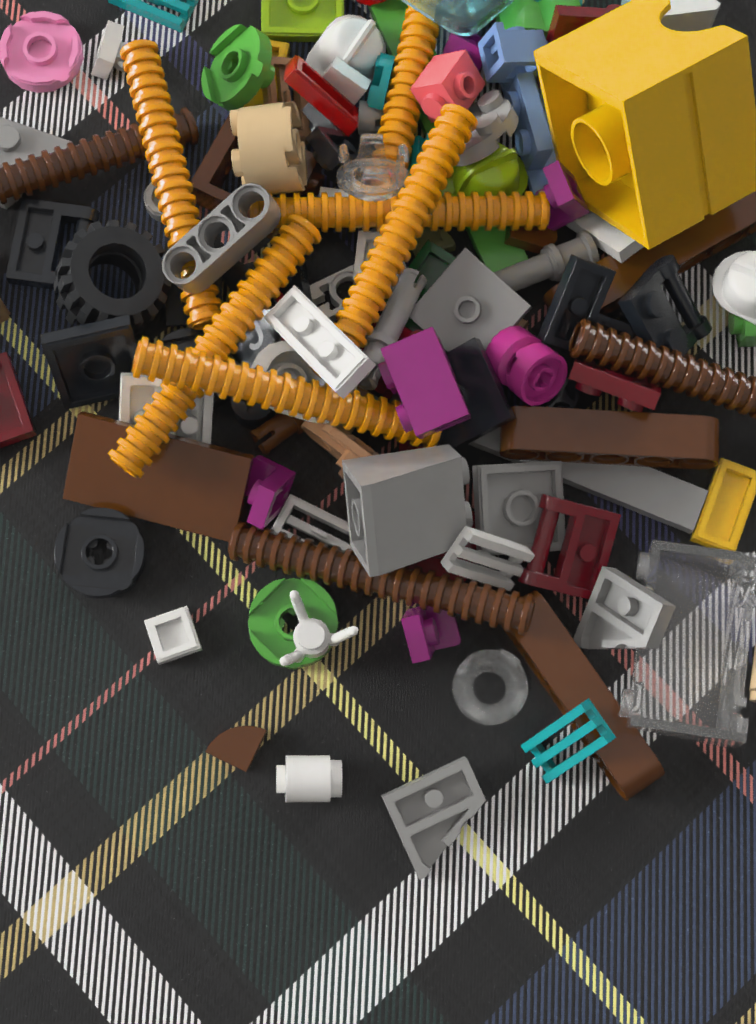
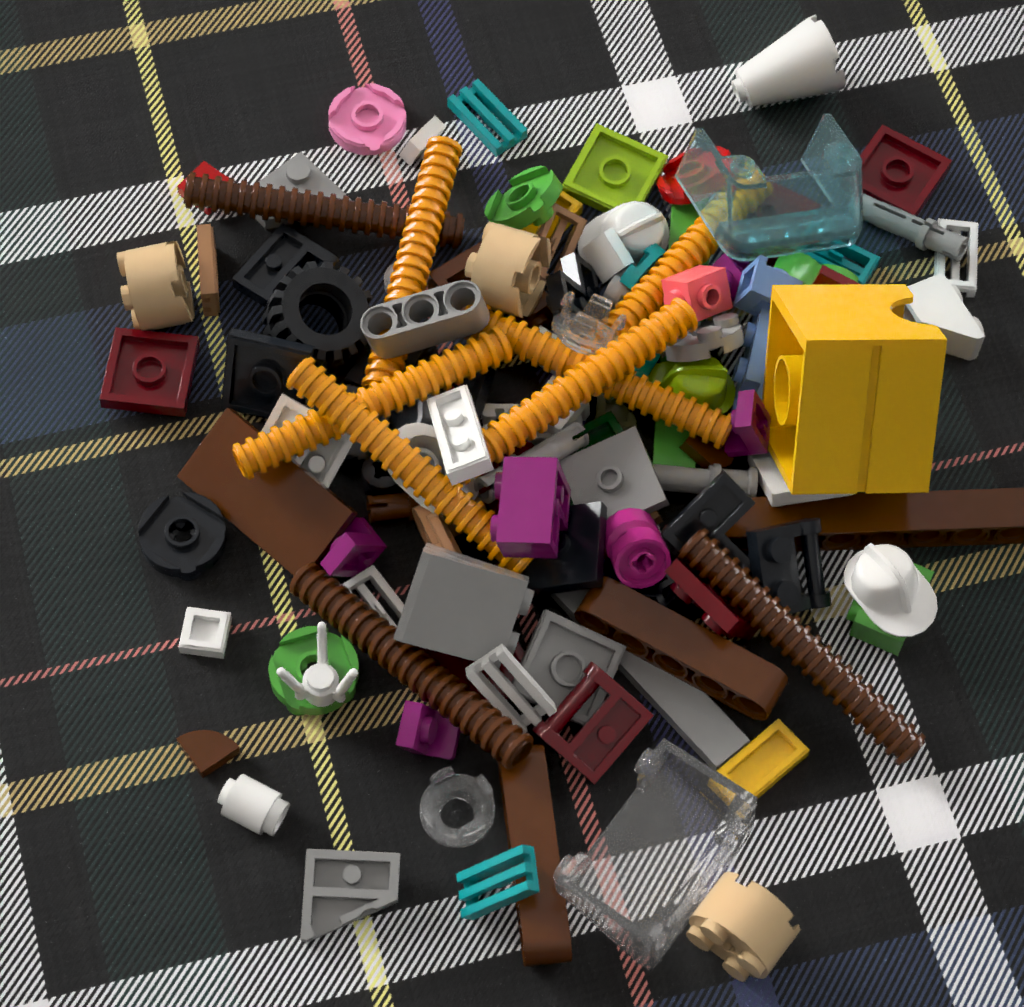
camera: 25 degrees right, 15 degrees down
(321, 95) = (583, 252): red tile -> none
(622, 615) = (604, 797): light grey wing -> none

